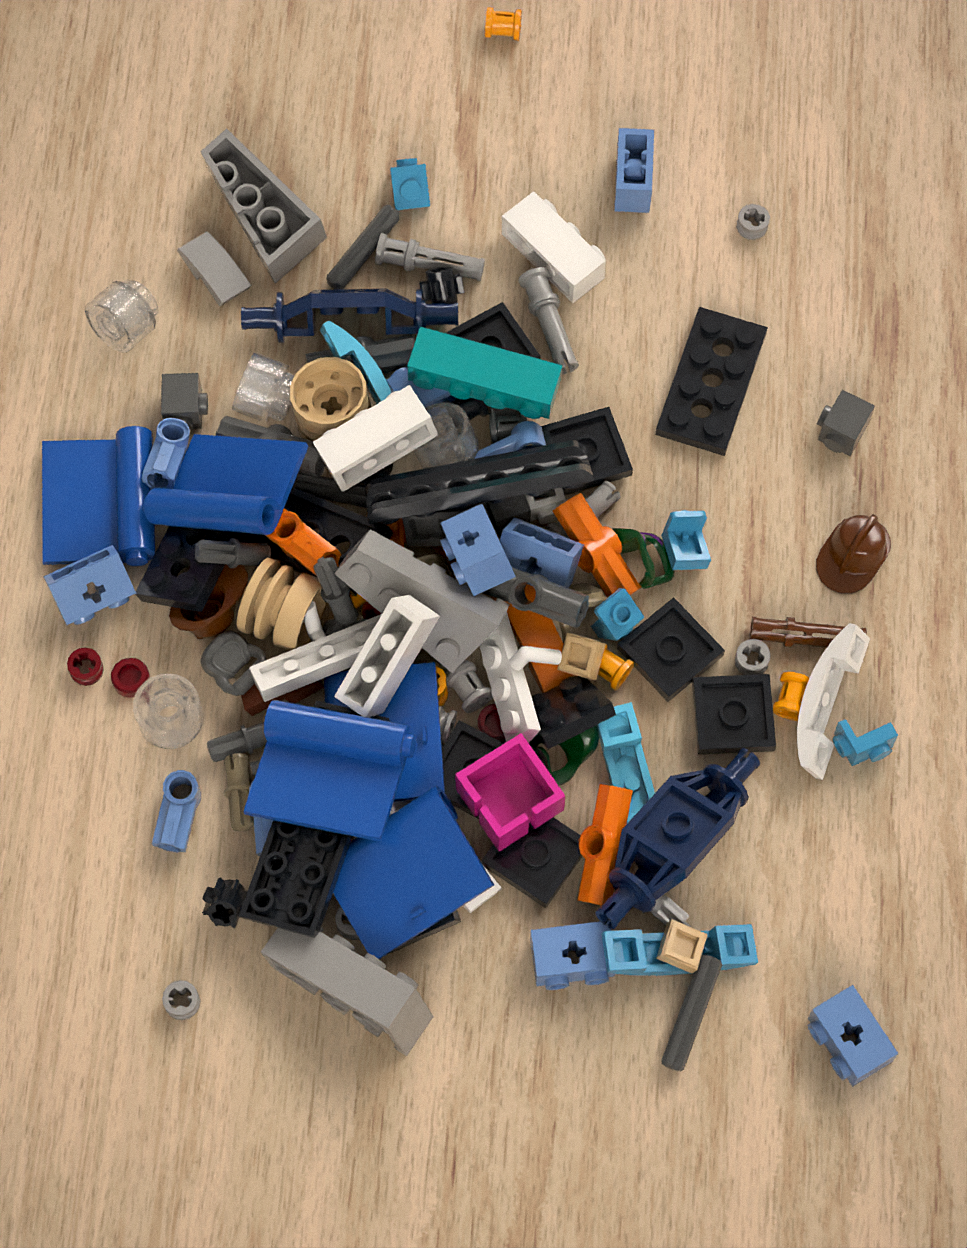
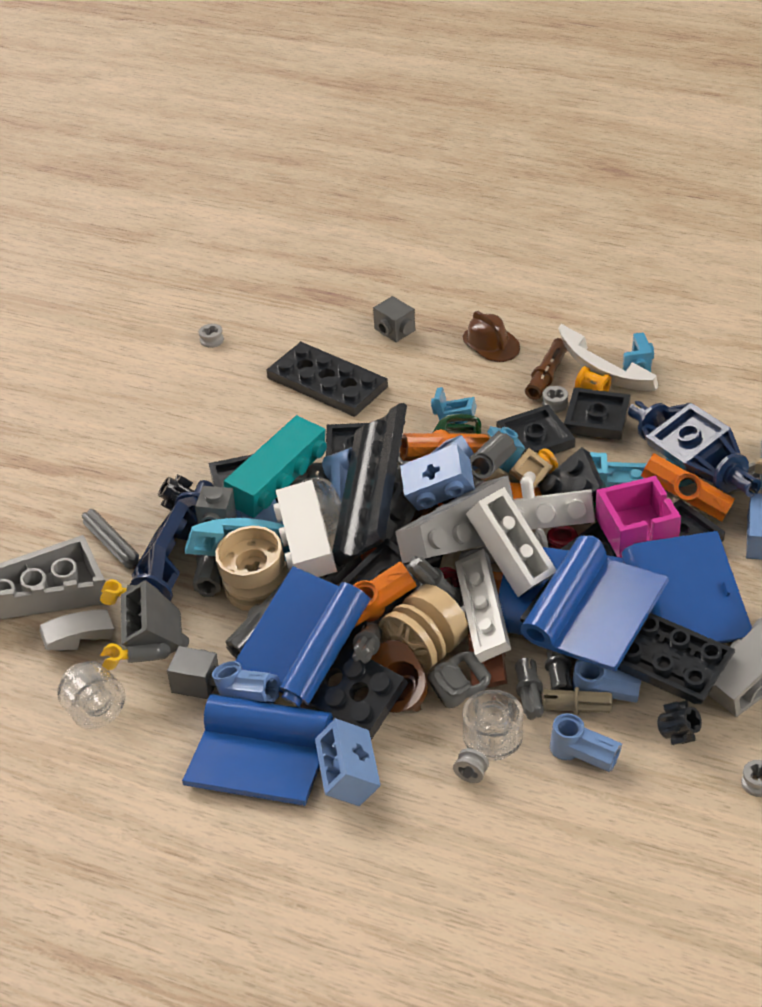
camera: 70 degrees left, 25 degrees down
(94, 674) = (427, 796): dark red bush -> none
(122, 706) = (471, 765): none -> light grey bush
(129, 676) = (440, 762): dark red tile -> none
(210, 332) = (148, 624): none -> dark grey torso
(264, 389) = (212, 607): clear piece -> none
(390, 336) = (215, 504): none -> dark grey brick
(409, 184) = (71, 497): dark azure bracket -> none
(409, 258) = (136, 508): light grey pin -> none
(544, 306) = (222, 444): light grey pin -> none
(554, 244) = (176, 430): white brick -> none
(634, 170) = (140, 372): medium blue brick -> none

